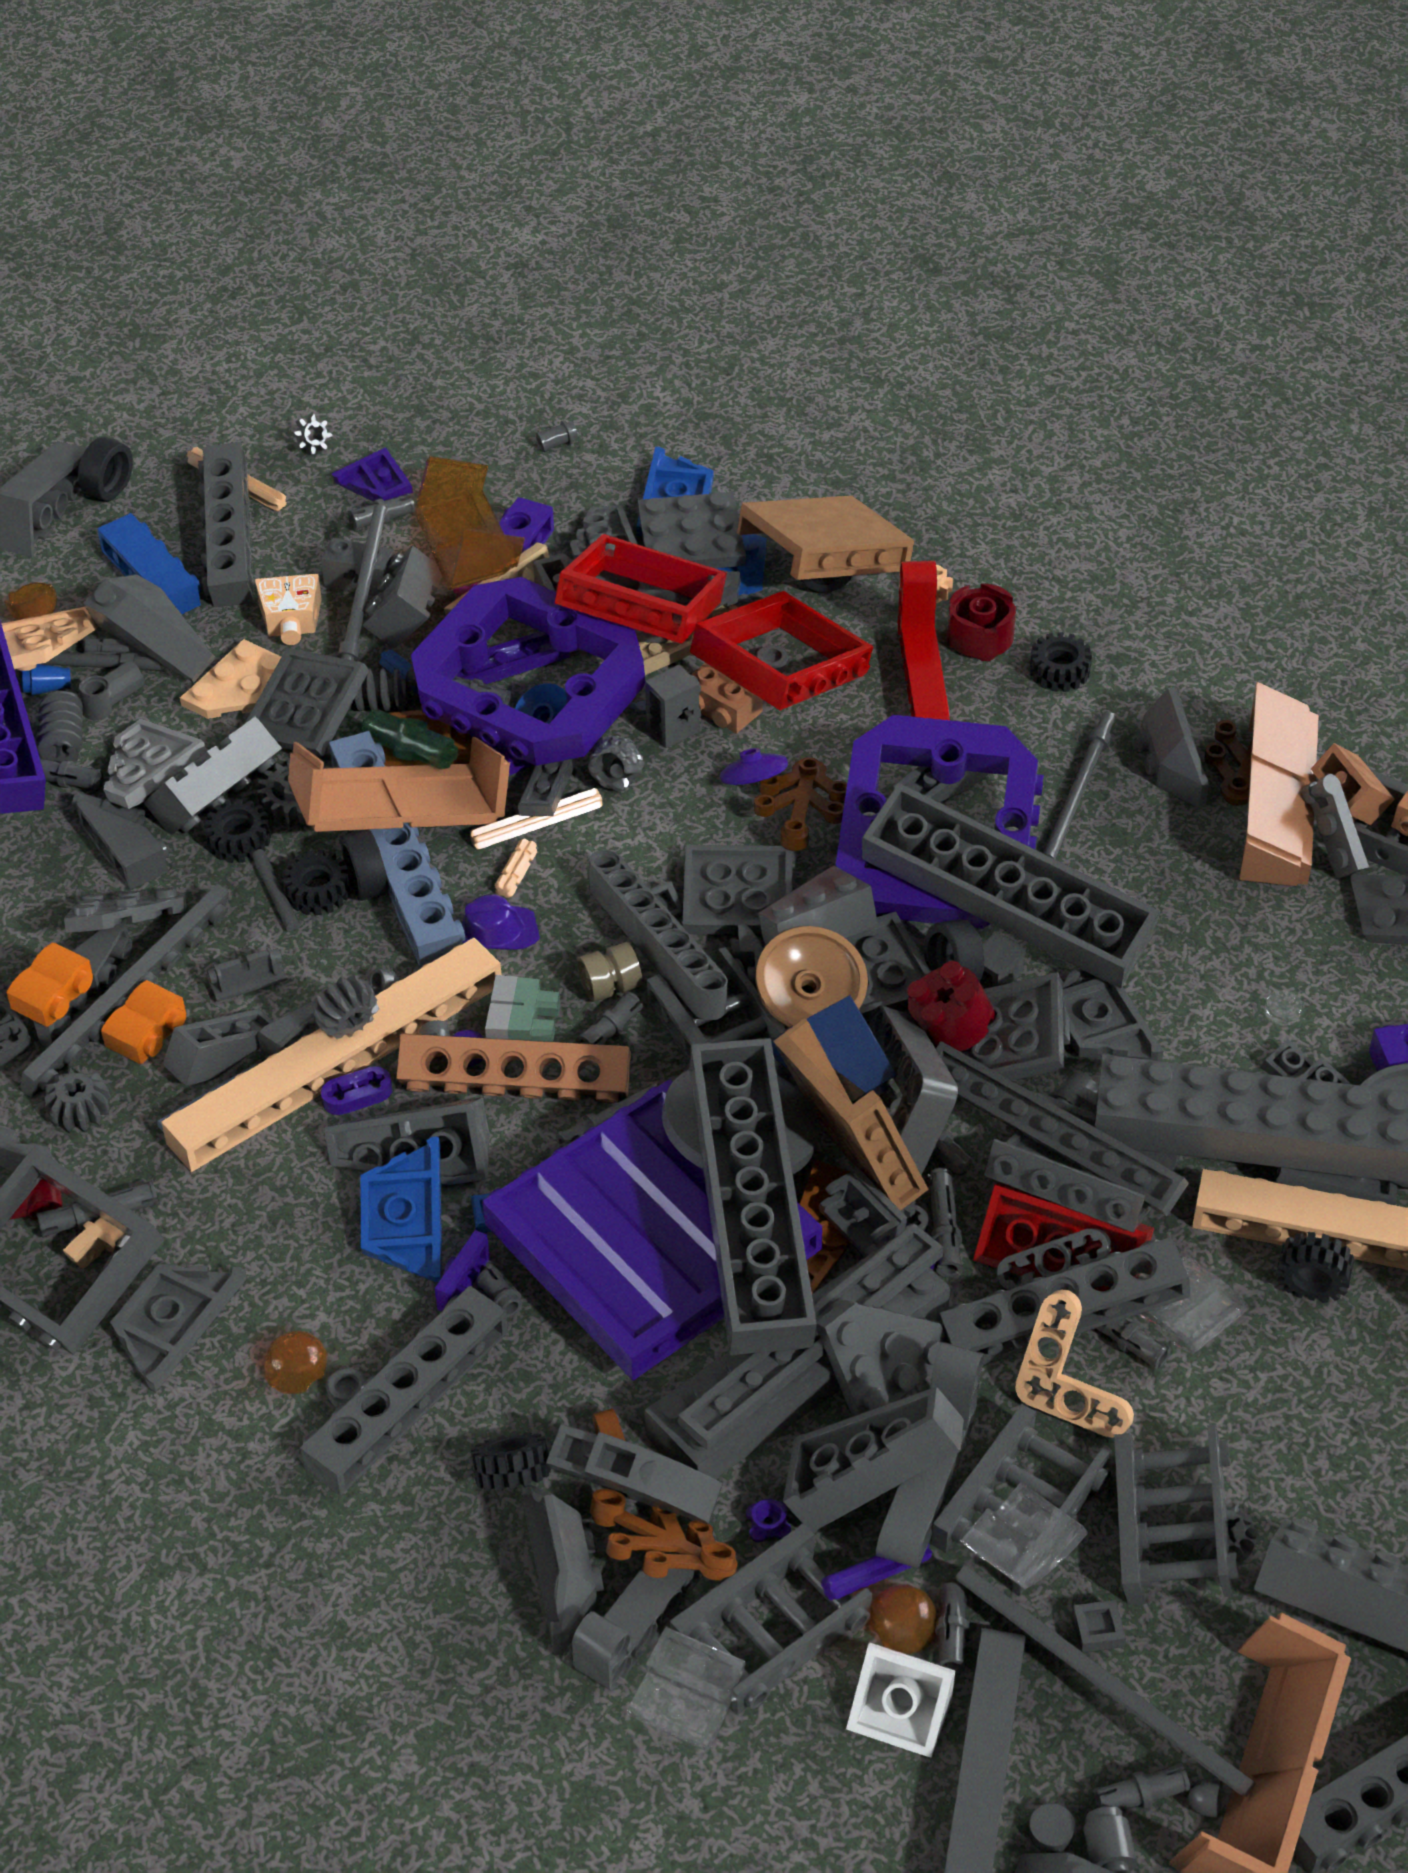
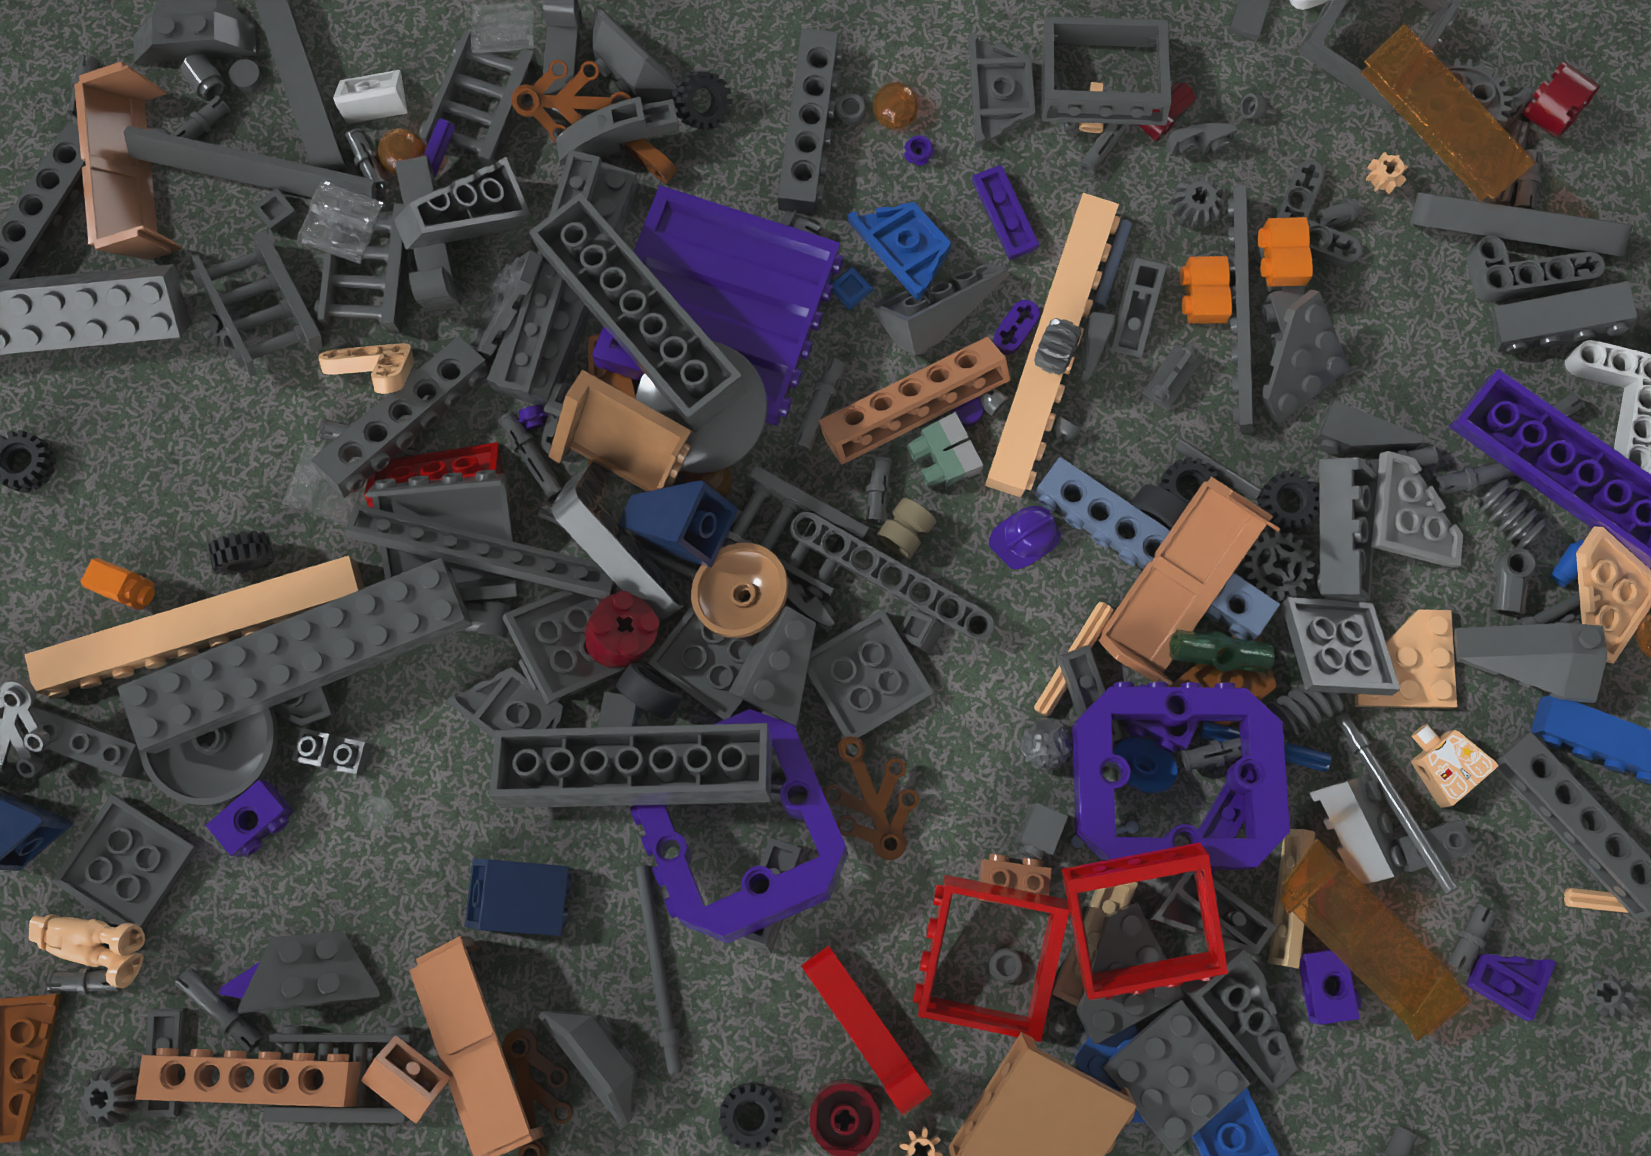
camera: 145 degrees right, 30 degrees up
(274, 1194) = (1005, 212): none -> dark purple plate
(310, 1293) = (918, 143): none -> dark purple plate
(463, 1269) = (834, 220): dark purple plate -> none
(515, 868) = (1053, 598): light nougat axle -> none
(753, 767) = (922, 810): dark purple dish -> none
(765, 1510) = (524, 160): dark purple plate -> none
(1078, 1239) = (430, 453): dark grey beam -> none
(1183, 877) = (517, 897): none -> dark blue slope
(1336, 826) = (402, 1022): dark grey plate -> none

